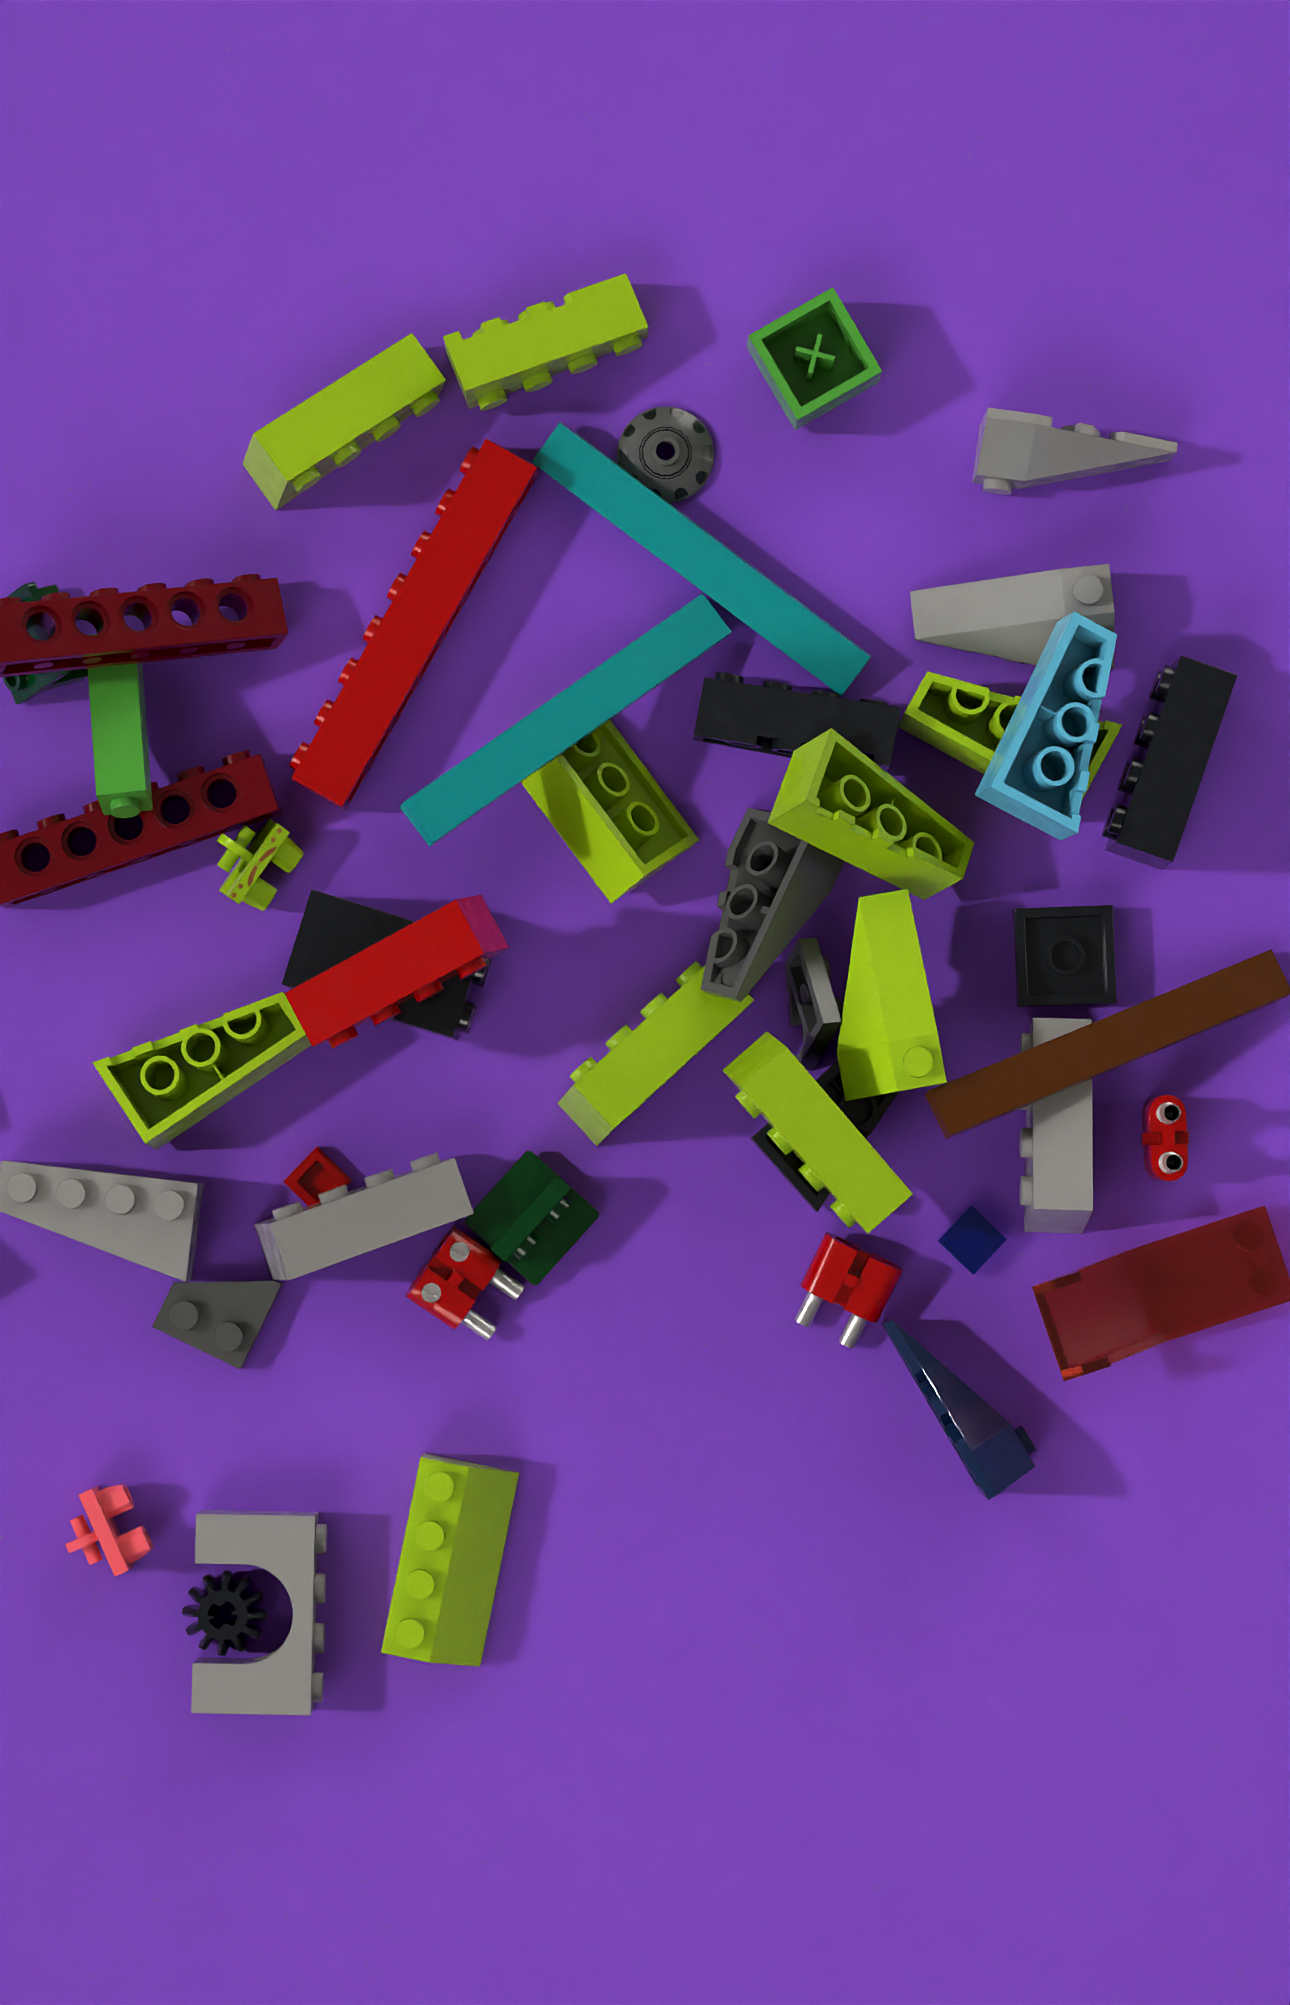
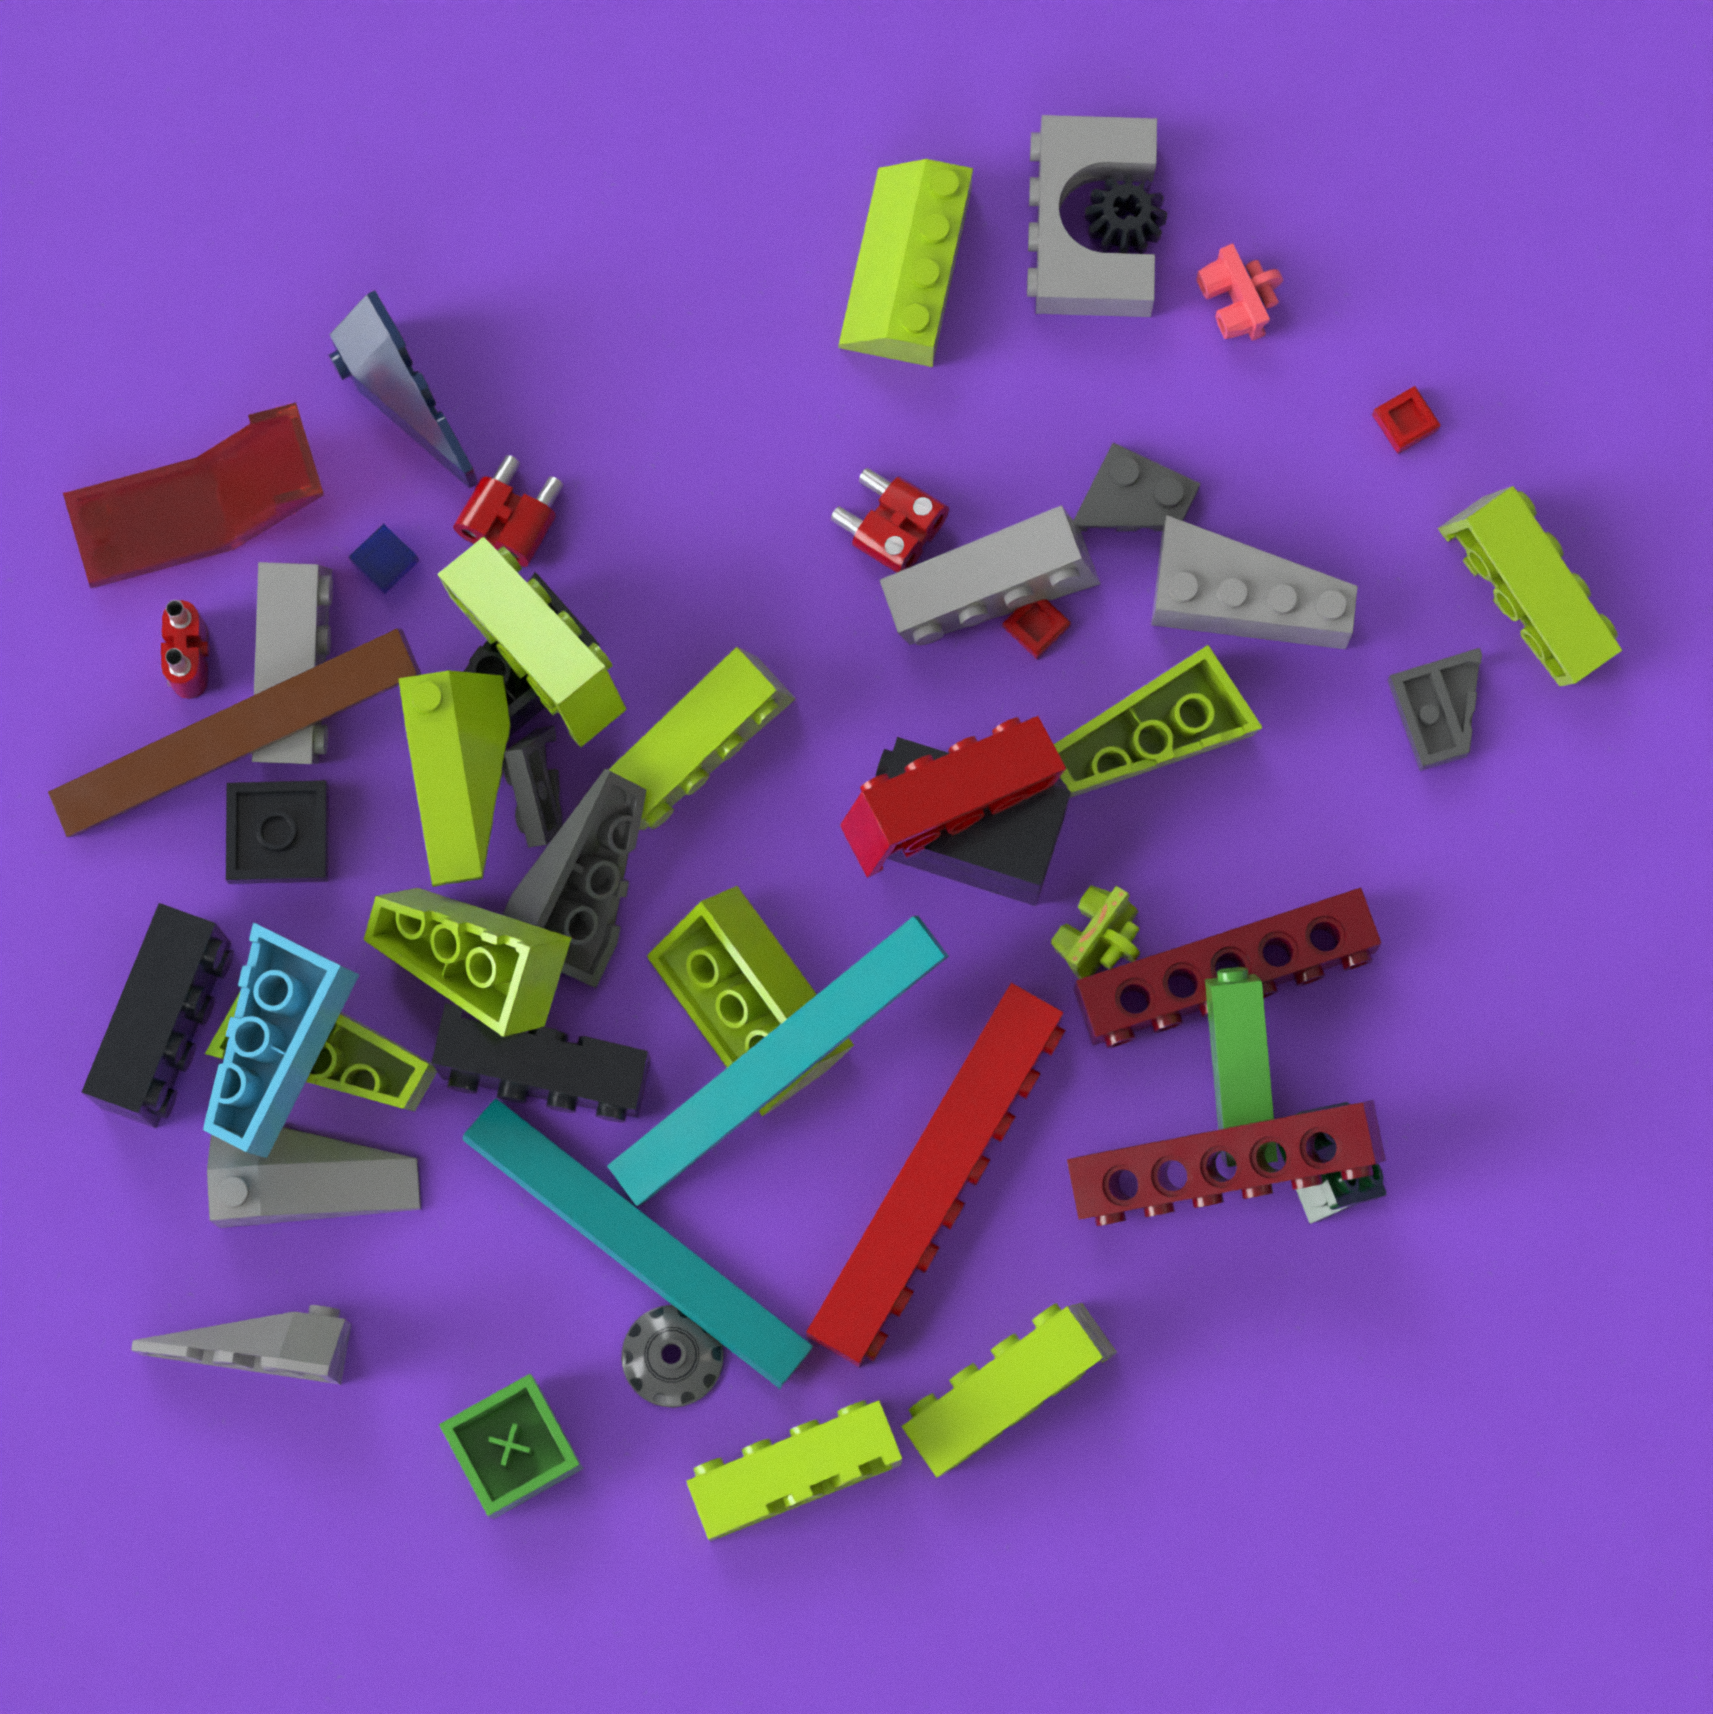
camera: 175 degrees left, 10 degrees down
(531, 1218) = (822, 583): dark green bracket -> none

